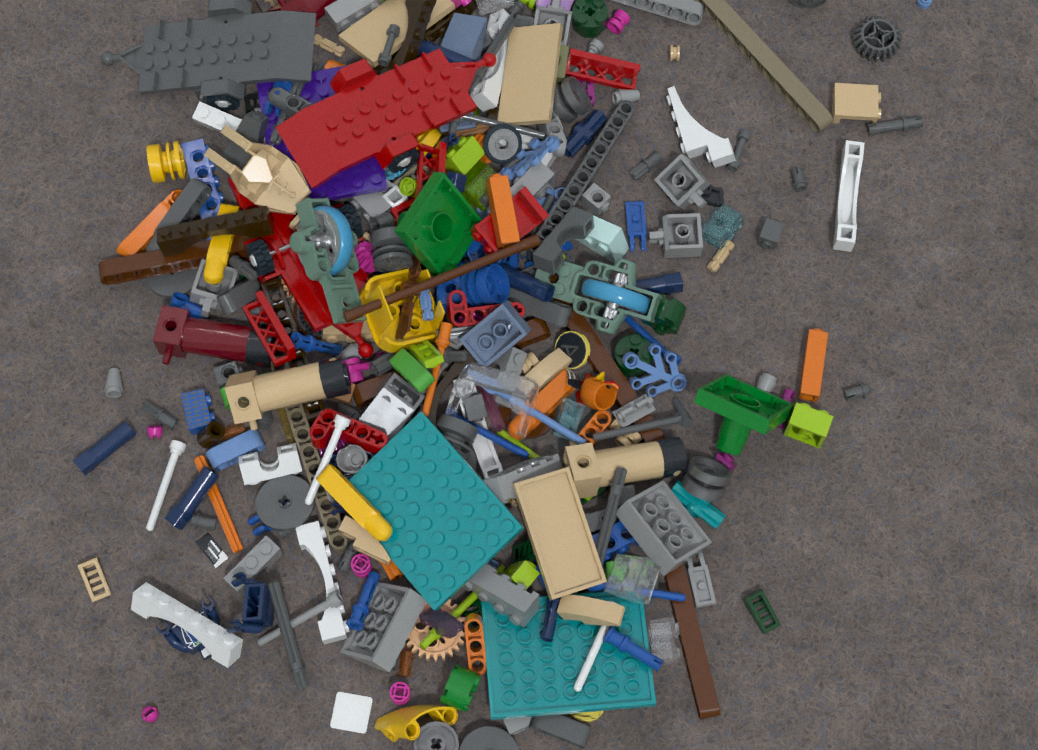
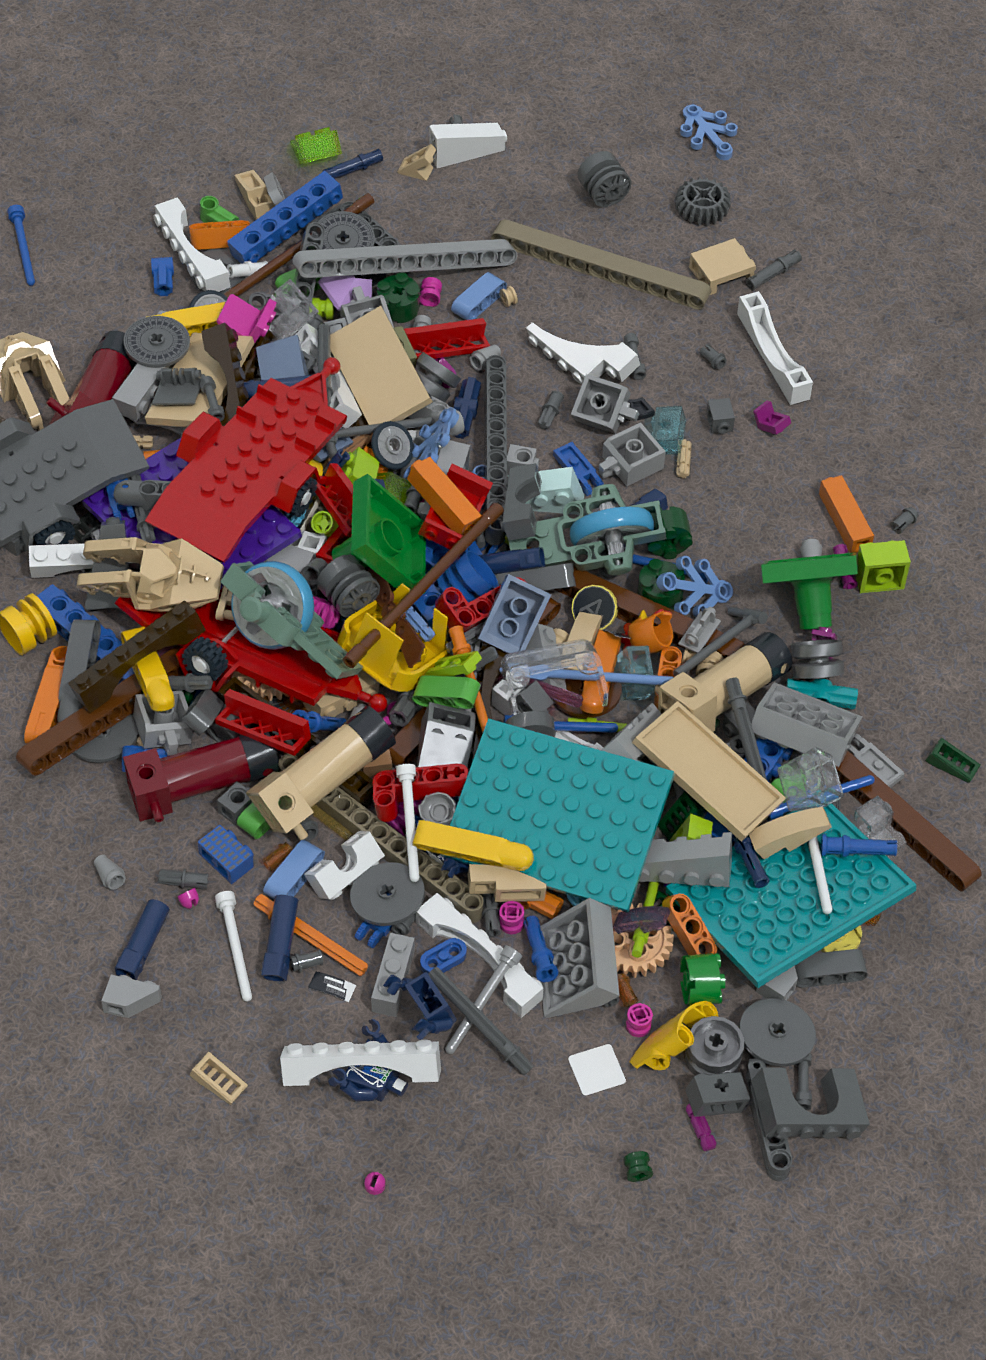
camera: 30 degrees left, 15 degrees down
(69, 486) = (129, 996): none -> light grey slope
(210, 435) = (258, 867): dark brown brick -> none
(297, 570) = (441, 955): none -> blue plate
(373, 22) = (177, 386): none -> dark grey hinge
(651, 43) = (478, 296): none -> medium blue beam
(807, 255) = (769, 420): none -> magenta bracket

